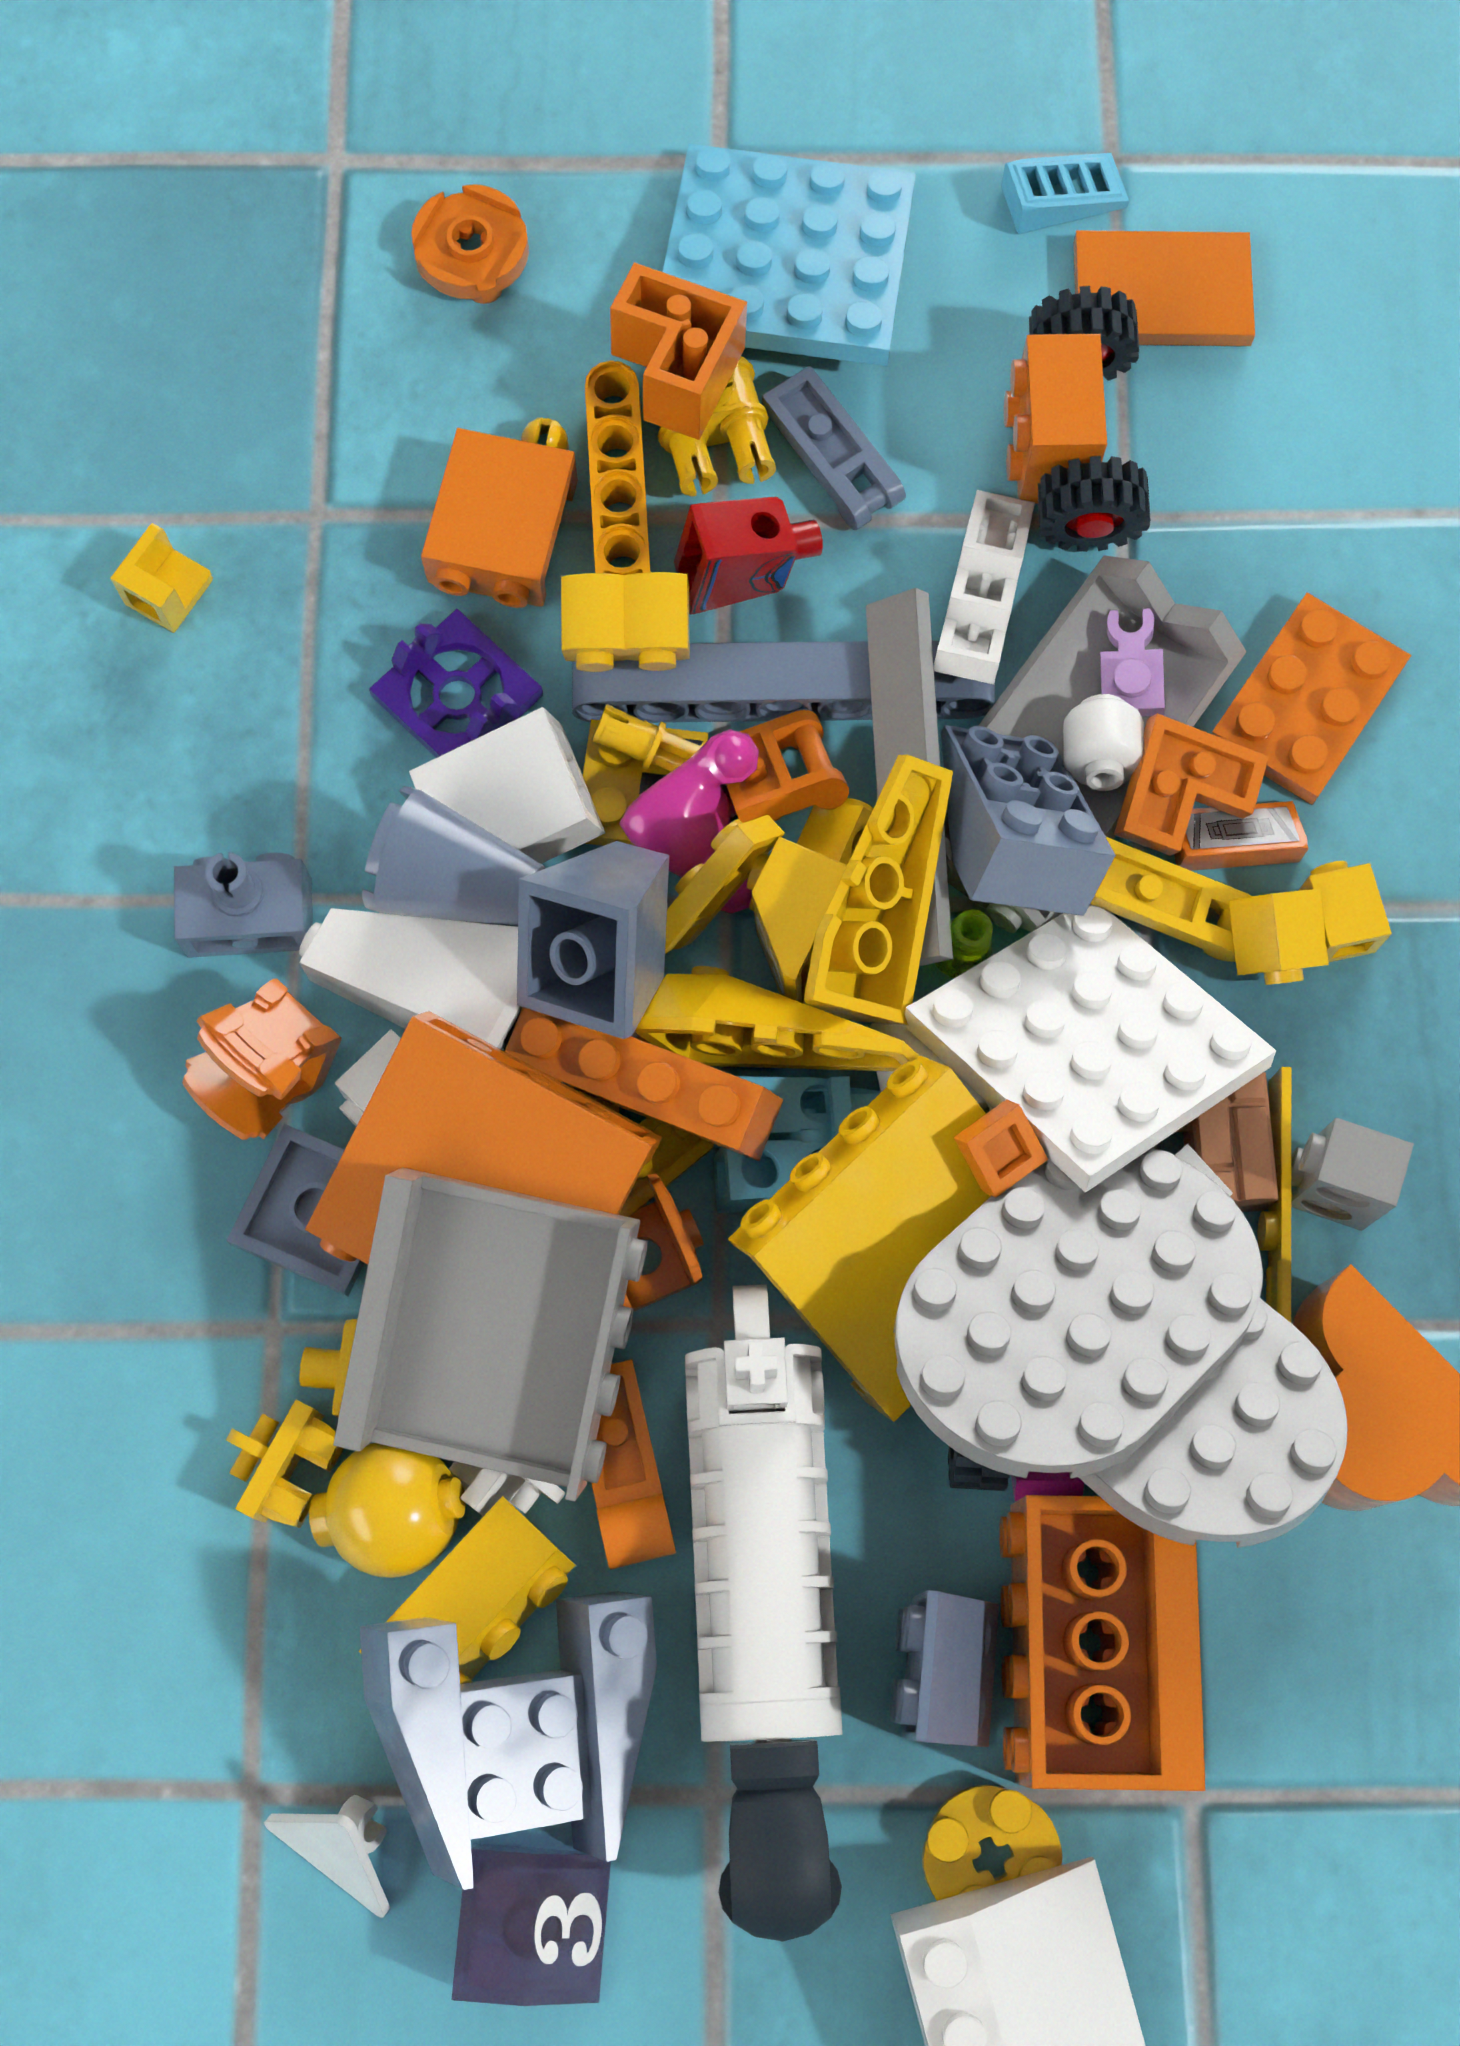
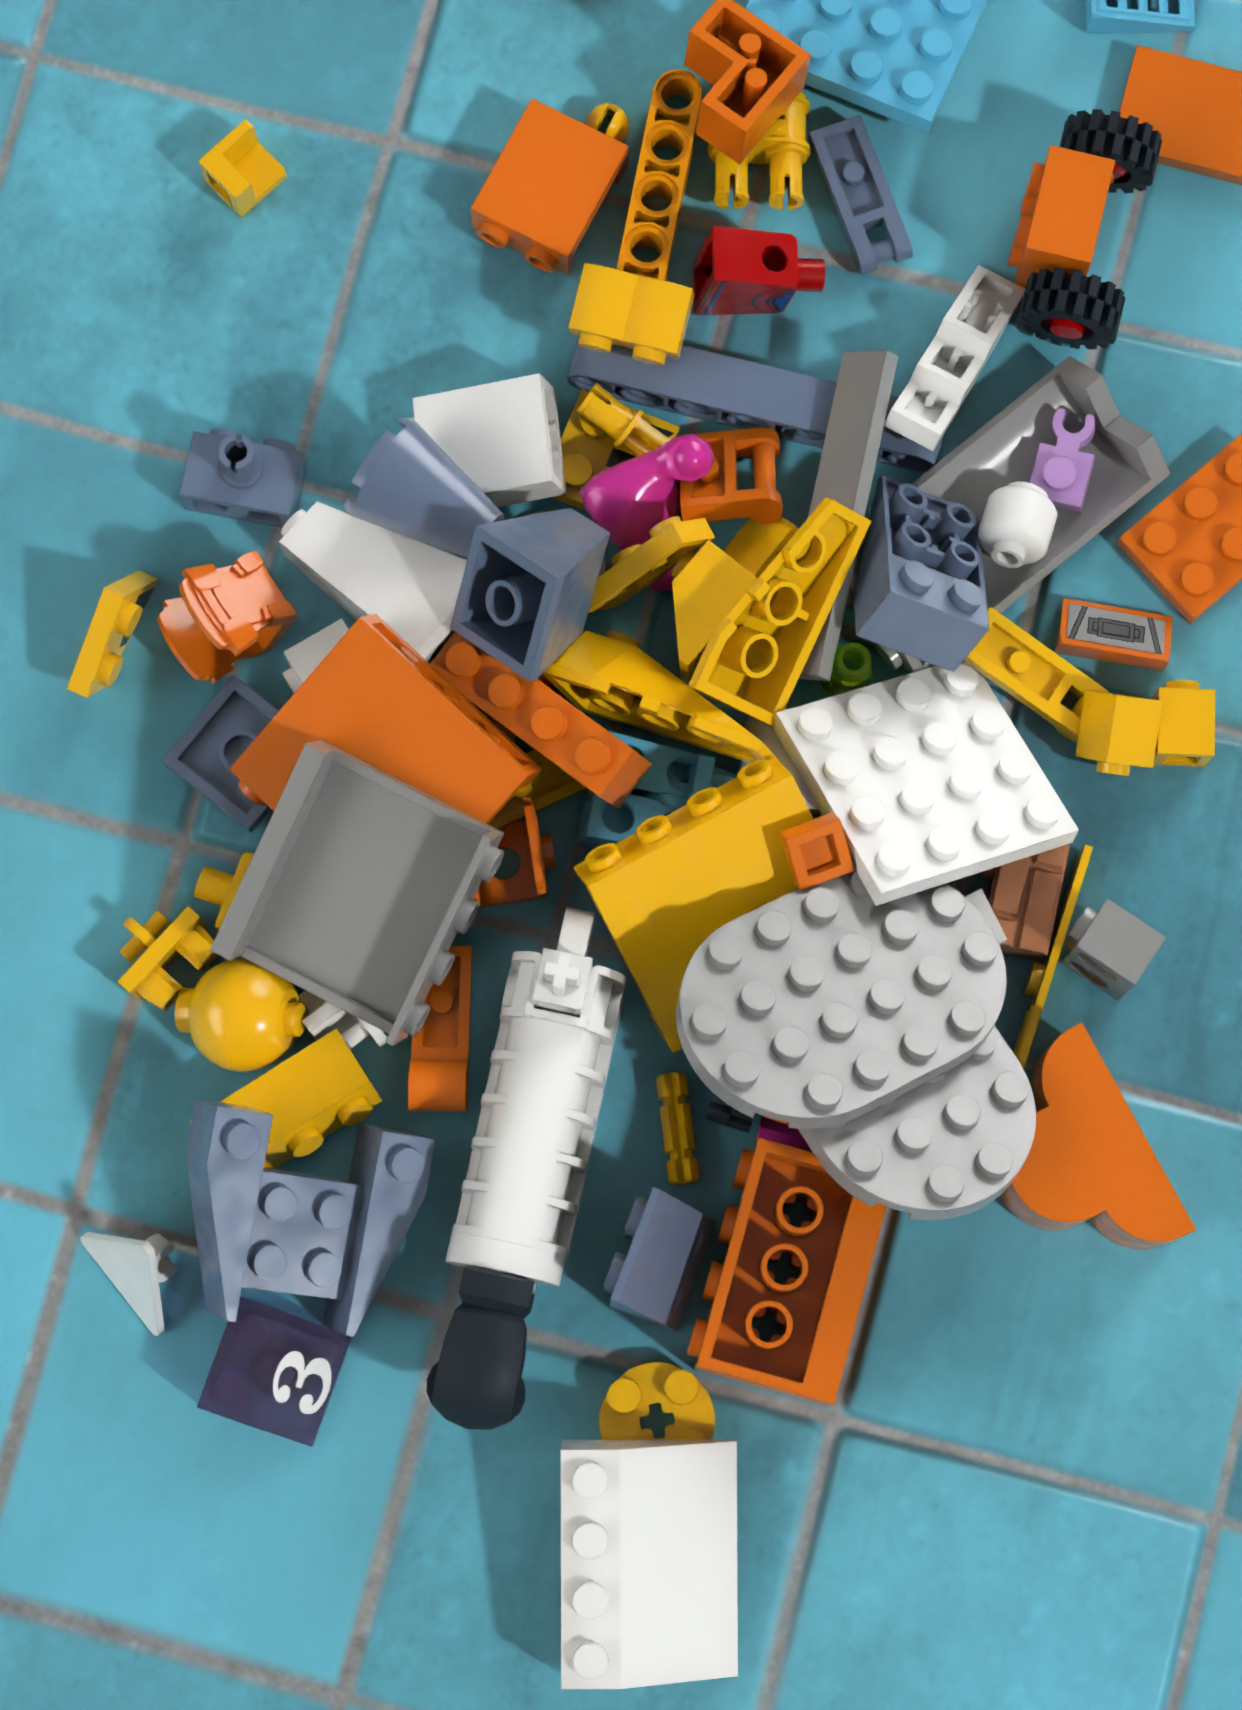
camera: 15 degrees right, 5 degrees up
(132, 1112) = (109, 633): none -> yellow wing
(453, 634) = (484, 282): dark purple piece -> none
(919, 1506) = (677, 1128): none -> yellow axle
(1182, 768) = (1076, 564): orange plate -> none

